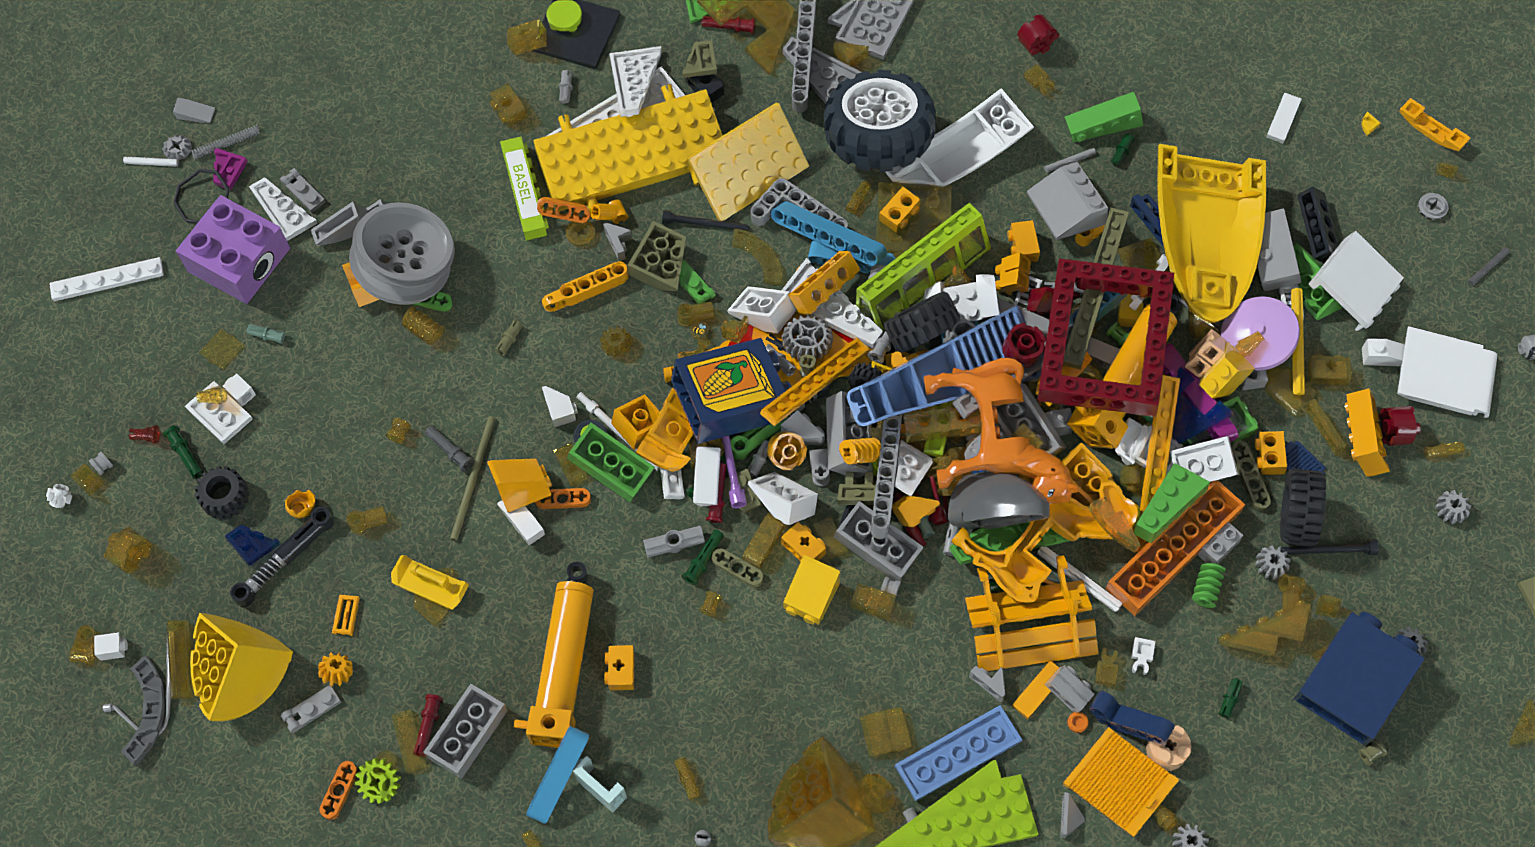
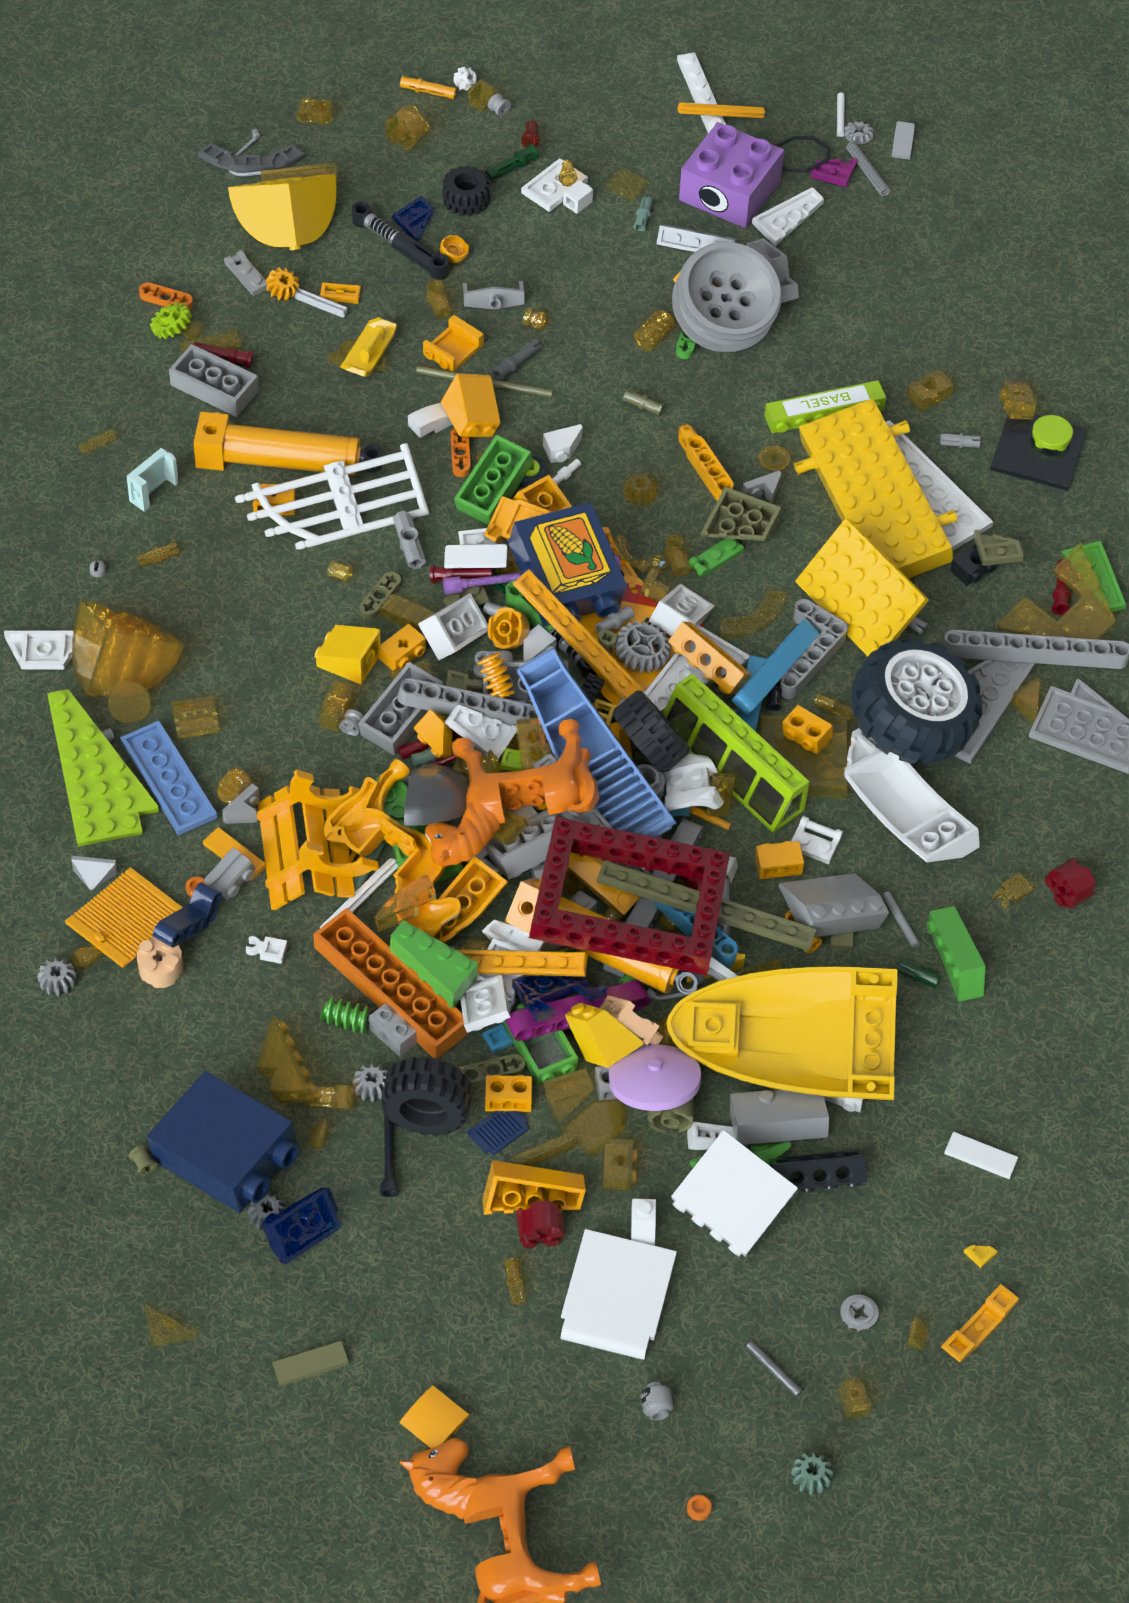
camera: 85 degrees right, 10 degrees down
(63, 534) = (420, 85): none -> light orange pin
(110, 646) = (313, 127): white brick -> none
(140, 259) = (720, 110): none -> light orange axle
(302, 190) = (813, 231): light grey plate -> none
(305, 287) = (687, 238): none -> fence
(359, 632) = (321, 303): none -> axle
(370, 467) = (493, 297): none -> light grey piece
(426, 505) = (454, 344): none -> light orange panel
(557, 774) = (150, 440): dark azure beam -> none
(577, 208) = (793, 446): orange beam -> none
(613, 211) = (799, 483): light orange piece -> none
(624, 599) = (344, 499): none -> white piece
(632, 77) = (975, 490): white wing -> none
(669, 217) = (796, 533): black piece -> none
(698, 564) = (384, 562): dark green pin -> none
(973, 688) = (233, 785): none -> clear yellow gear
(1002, 218) = (815, 846): none -> white plate
(1013, 274) = (734, 841): light orange hips -> none
(1024, 344) = (619, 804): dark red brick -> none
(1106, 671) = (252, 913): clear yellow plate -> none
(1230, 698) = (213, 1029): dark green axle -> none
(1248, 344) = (632, 1052): clear yellow cone -> none
(1263, 408) = (567, 1092): none -> clear yellow wing
(1298, 354) = (652, 1127): yellow axle -> none
(1434, 623) = (302, 1225): none -> clear blue slope
(1445, 508) = (437, 1286): light grey gear -> none
(1510, 211) = (853, 1406): none -> clear yellow brick

